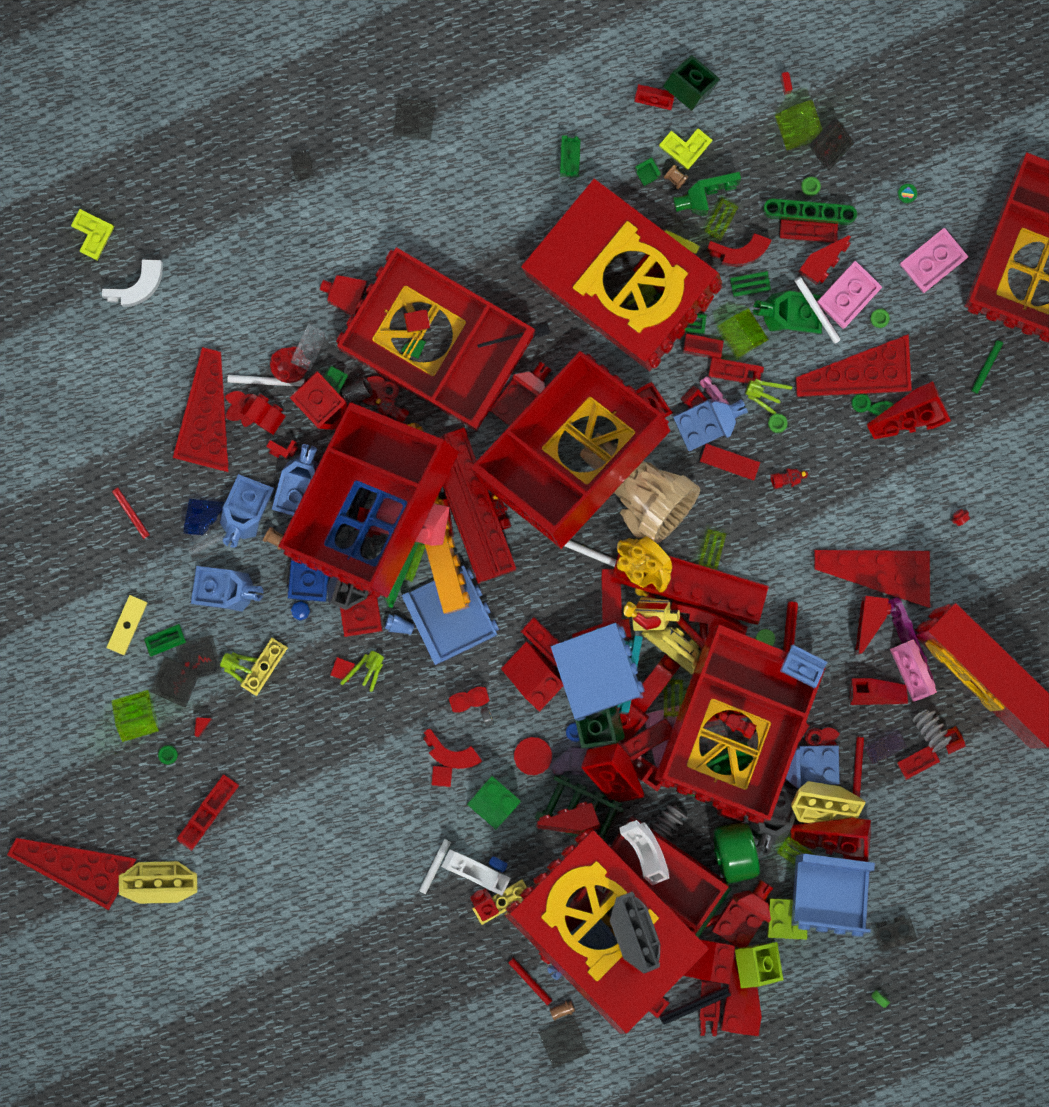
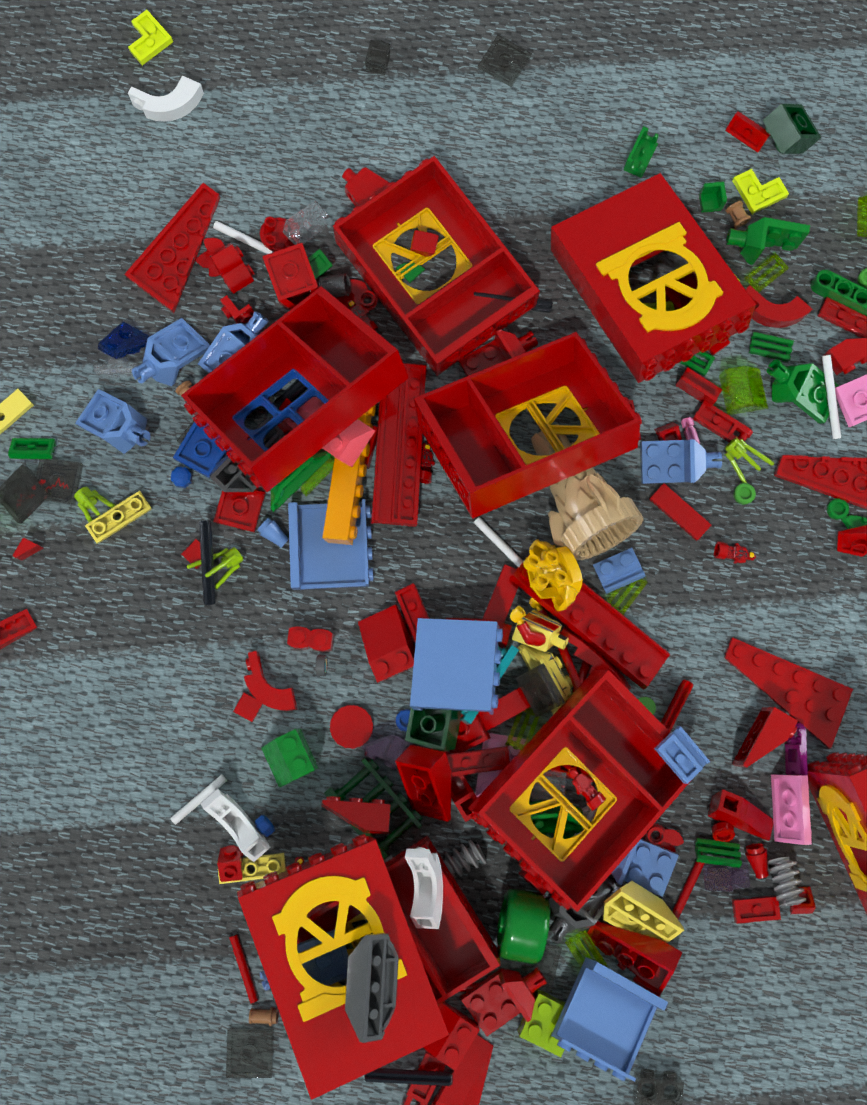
camera: 20 degrees right, 5 degrees down
(130, 512) = (60, 317): red bar -> none
(356, 672) = (207, 561): none -> black axle
(673, 662) = (540, 690): none -> clear smoke bracket
(698, 534) = (619, 570): none -> medium blue plate
(759, 965) = (496, 1063): lime brick -> none
(868, 712) = (723, 832): none -> red tile
(868, 728) = (719, 849): none -> green tile
(904, 721) = (758, 860): none -> red cone

